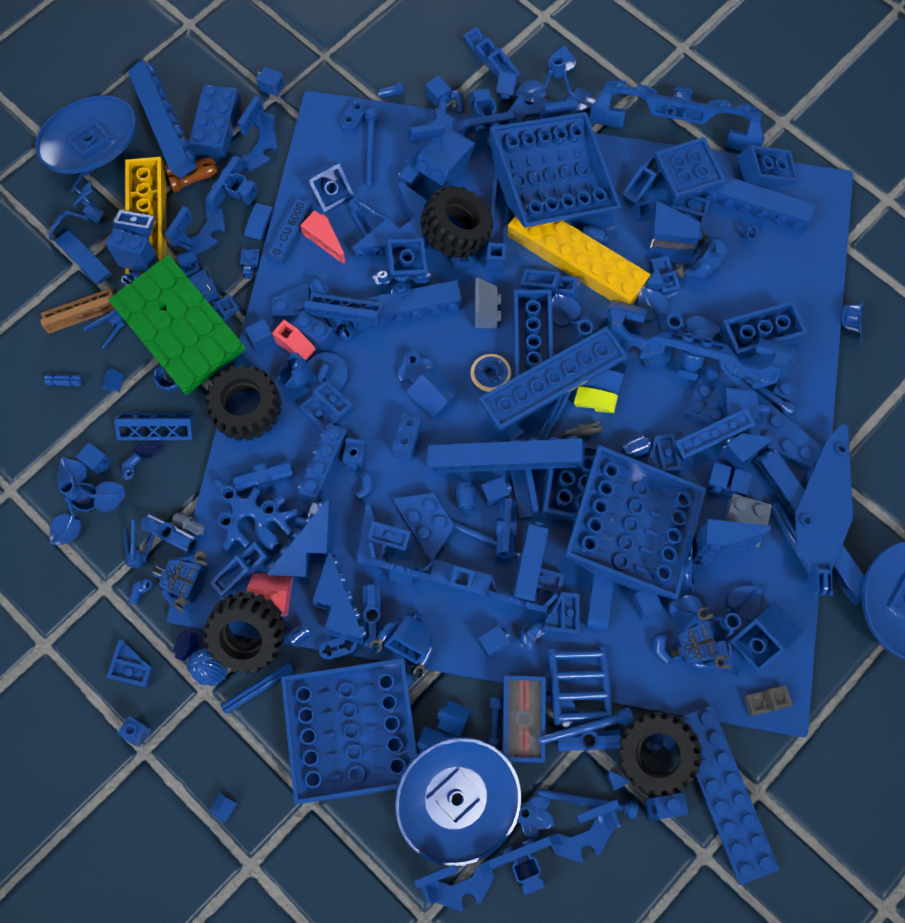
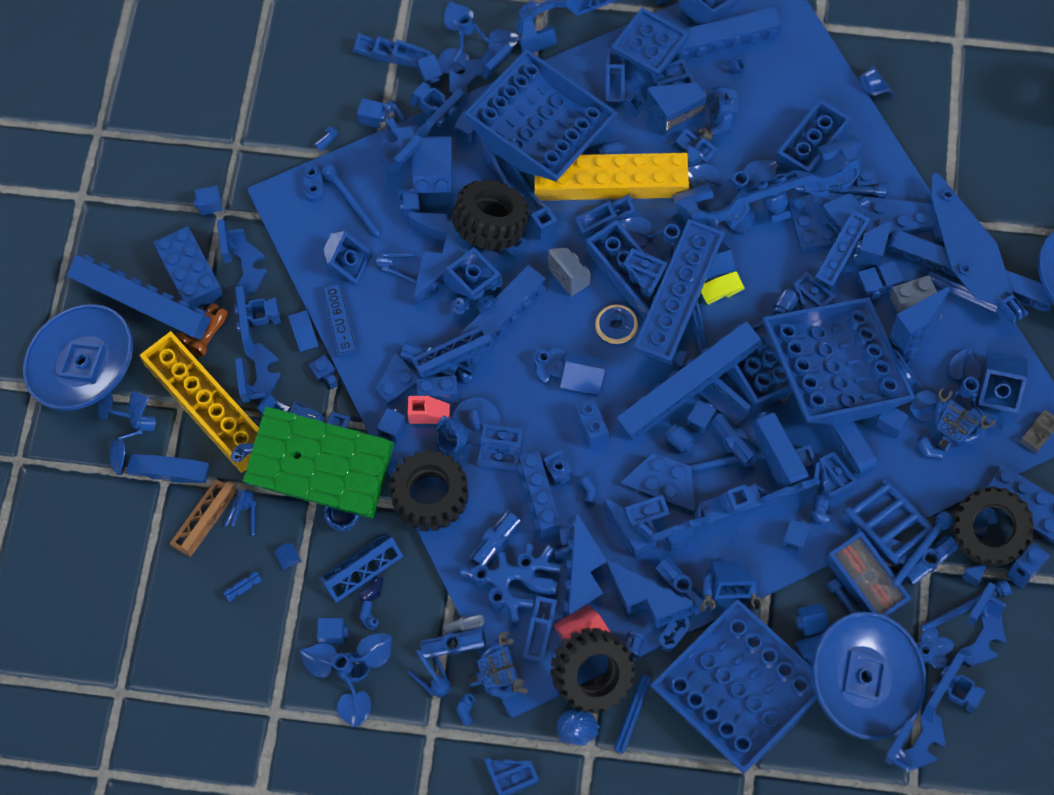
camera: 35 degrees left, 5 degrees down
(131, 251) = (228, 426): blue brick -> none
(134, 223) = (202, 412): blue slope -> none
(185, 645) = (544, 724): clear blue brick -> none
(320, 232) = (374, 303): coral slope -> none
(539, 343) = (645, 270): none -> blue wing
(583, 430) = (731, 320): dark grey pin -> none

